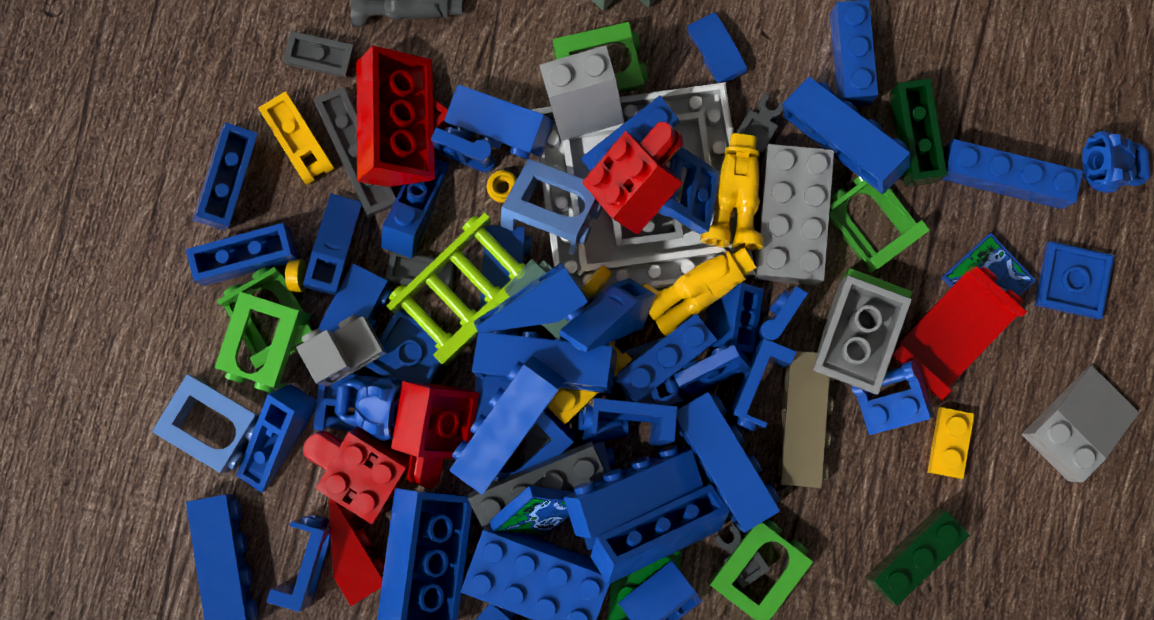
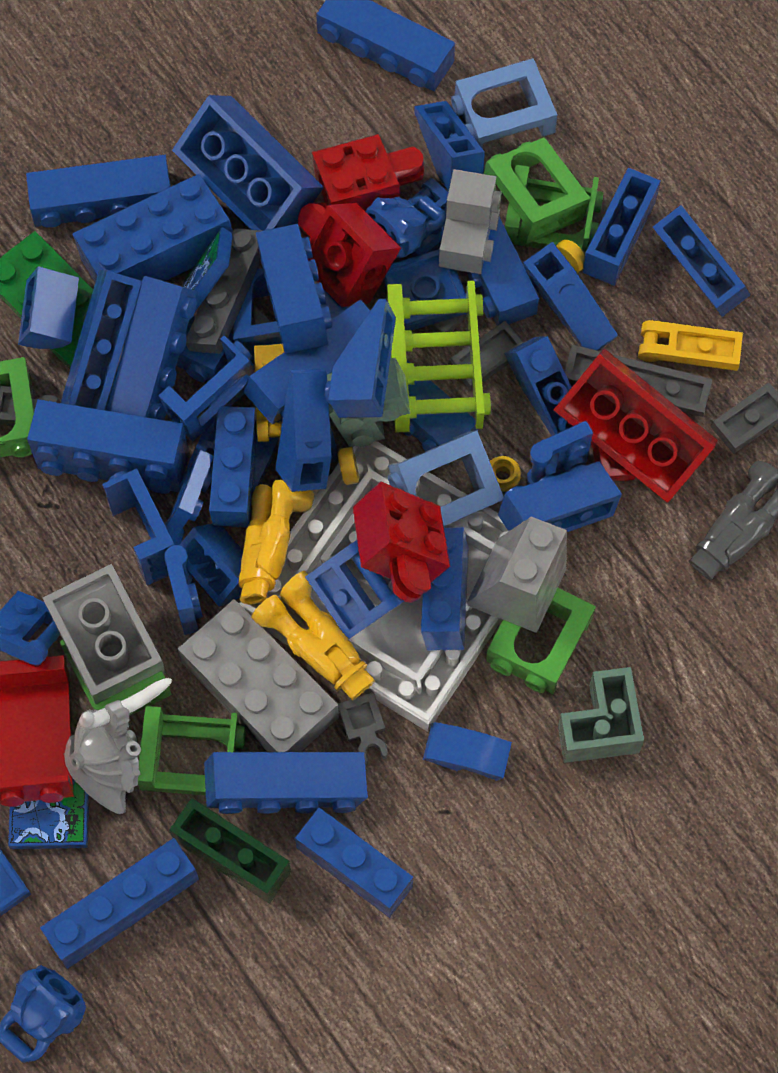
camera: 130 degrees right, 15 degrees down
(303, 593) = (312, 68): blue panel -> none
(353, 561) = (300, 126): red slope -> none
(804, 424) = (74, 537): dark tan brick -> none
(929, 265) = (106, 752): none -> light grey helmet

